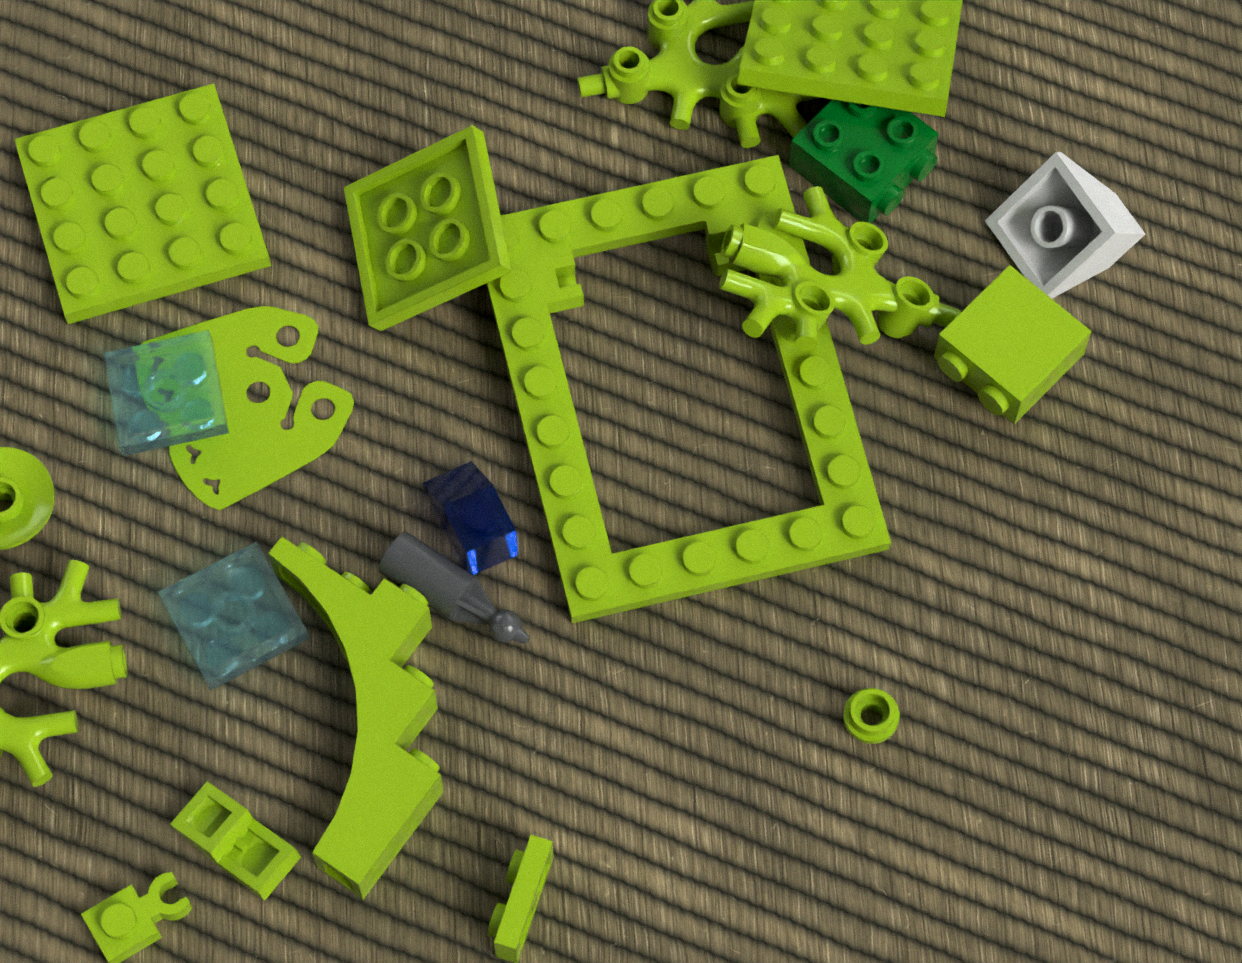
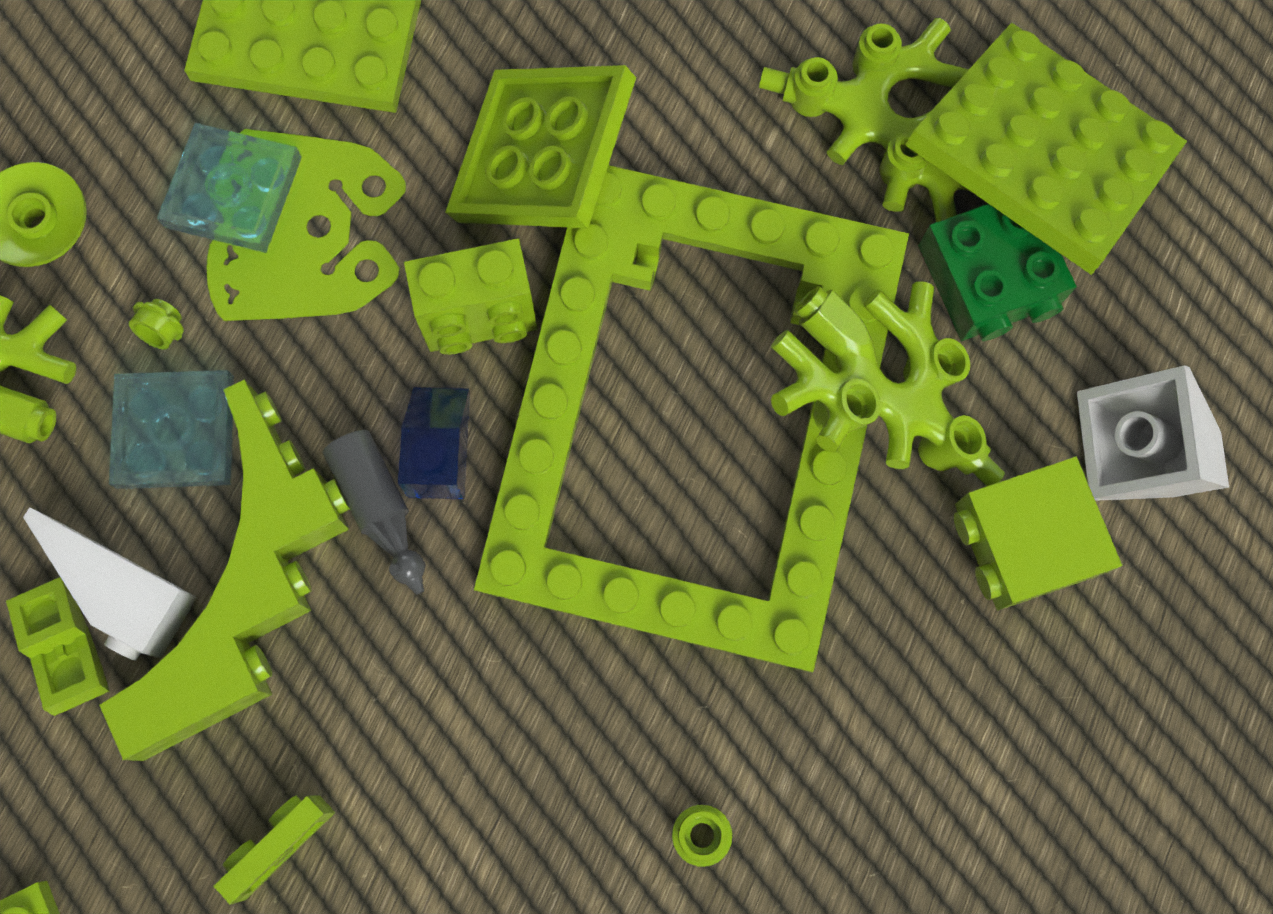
camera: 25 degrees right, 10 degrees up
(166, 537) = (156, 323): none -> lime plate
(271, 766) = (113, 592): none -> white slope
(441, 377) = (471, 296): none -> lime brick

